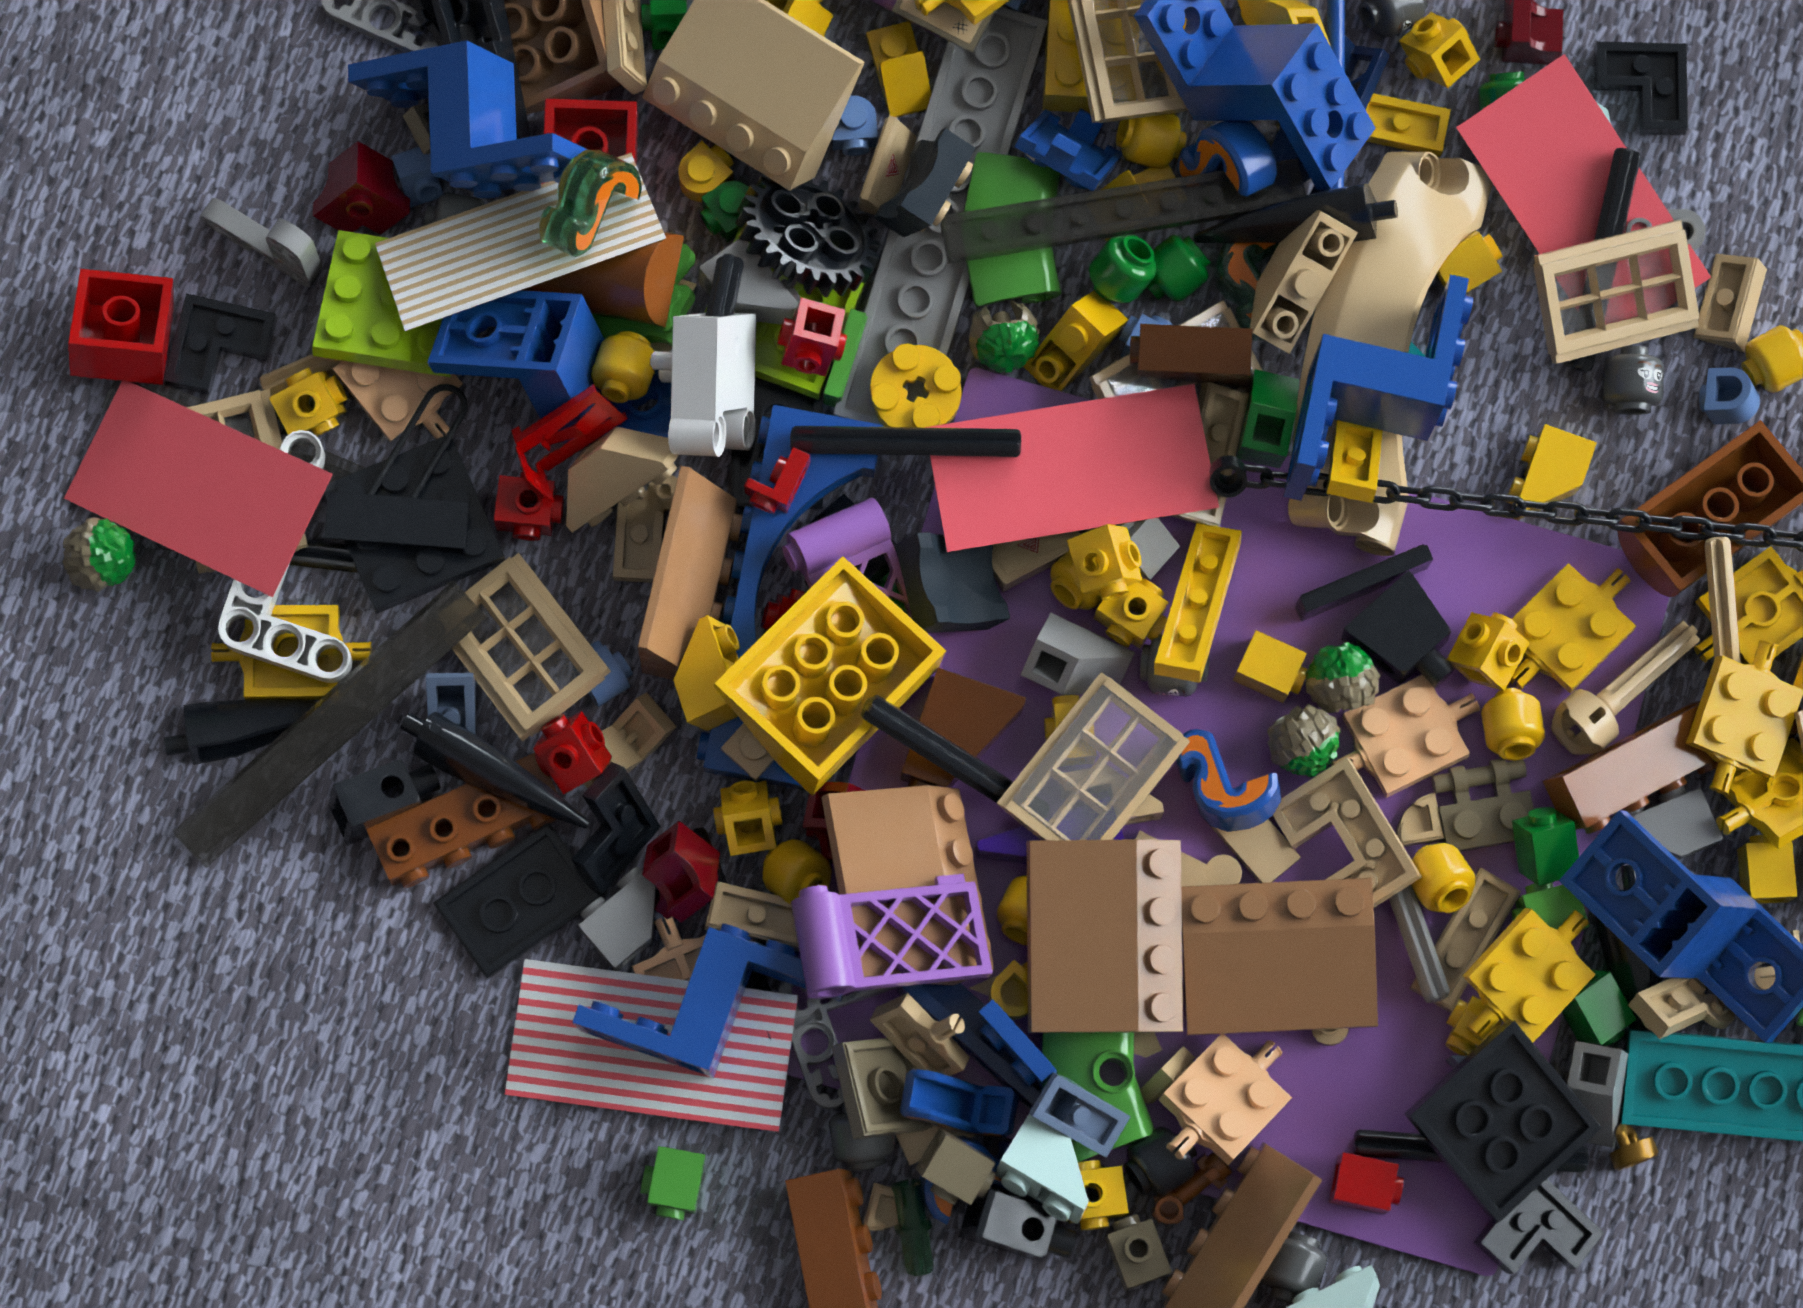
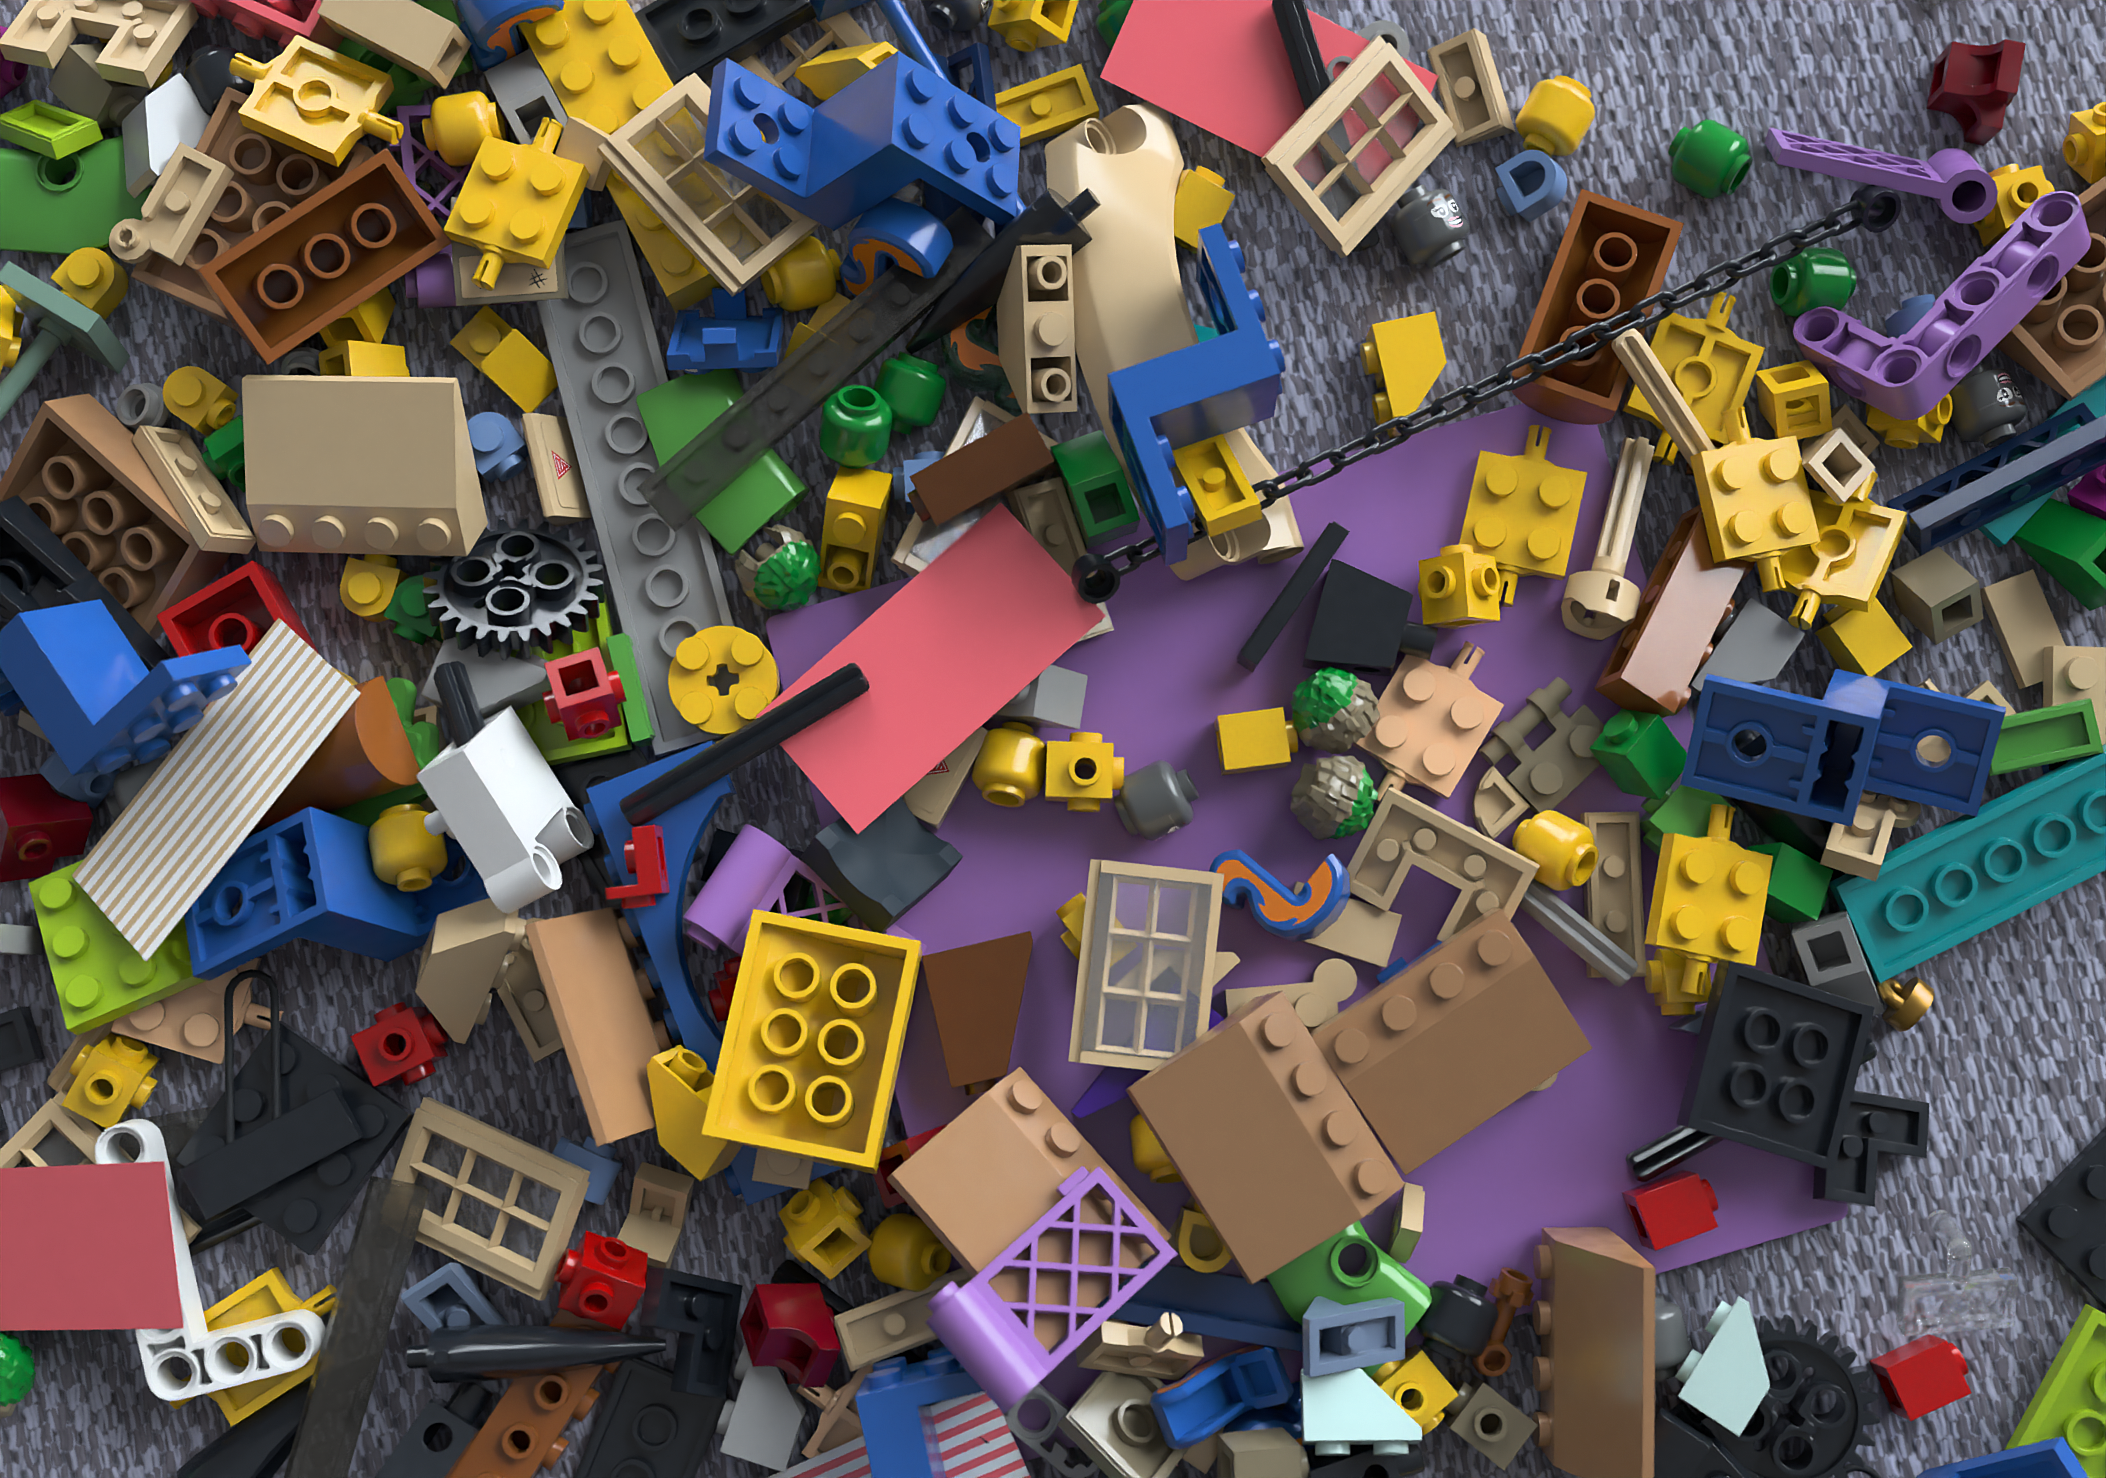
camera: 25 degrees left, 5 degrees up
(583, 433) = (407, 940): red piece -> none
(584, 198) = (246, 704): clear green animal -> none
(931, 177) = (603, 446): black brick -> none
(935, 748) = (971, 1049): black axle -> none
(1005, 1034) = (1222, 1297): blue plate -> none
(1072, 657) = (1051, 858): light grey slope -> none
(1105, 561) = (1025, 746): yellow brick -> none
(1197, 602) = (1143, 726): yellow plate -> none
(1224, 1099) = (1482, 1216): light nougat plate -> none
(1513, 724) = (1528, 648): yellow head -> none

